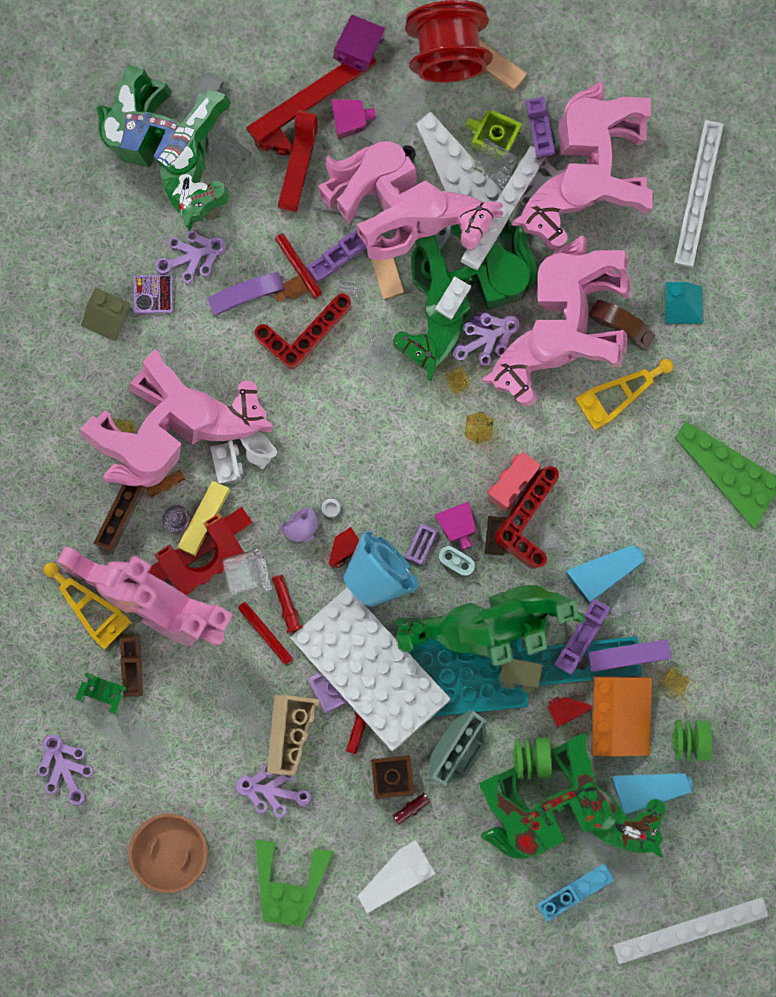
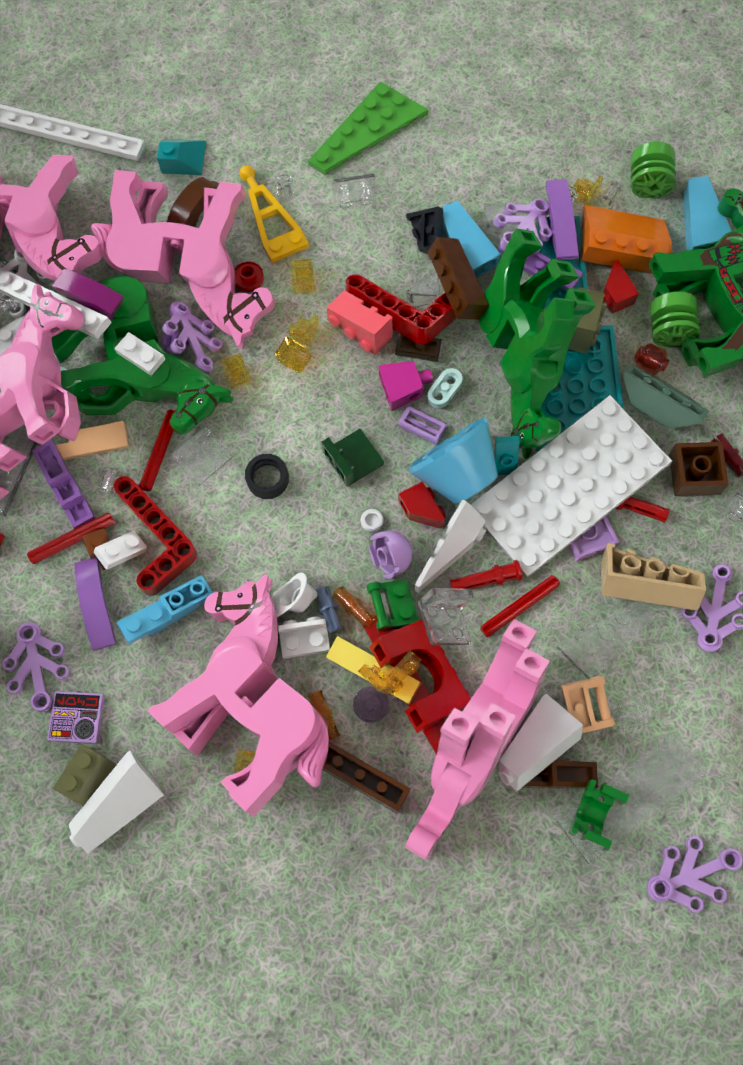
camera: 85 degrees left, 10 degrees down
(88, 334) = (115, 803): none -> white slope
(110, 629) = (514, 805): yellow plate -> none
(150, 646) = (539, 742): none -> white slope
(182, 681) = (579, 703): none -> light nougat plate
(188, 523) = (393, 682): none -> clear yellow bracket
(241, 350) = (166, 611): none -> medium azure slope
(251, 479) = (328, 609): none -> sand blue axle
(254, 499) = (354, 607): none -> clear orange pin
(260, 535) = (399, 603): none -> green plate
(288, 307) = (120, 550): none -> white plate
(319, 579) = (462, 533): none -> white wedge
(363, 403) = (260, 461): none -> black tyre
(381, 325) = (157, 454): none -> red axle
(385, 487) = (352, 456): none -> dark green bracket
(391, 614) = (506, 454): none -> teal plate
(497, 740) = (651, 358): none -> clear red head
(504, 246) = (88, 293): none -> magenta slope
(505, 435) = (304, 330): none -> clear yellow panel
(553, 380) = (248, 276): none -> red plate
(556, 562) = (457, 278): none -> reddish brown brick
(557, 428) = (302, 276): none -> clear yellow panel
(615, 535) = (426, 226): none -> black wing
(621, 623) = (536, 209): none -> lavender plant

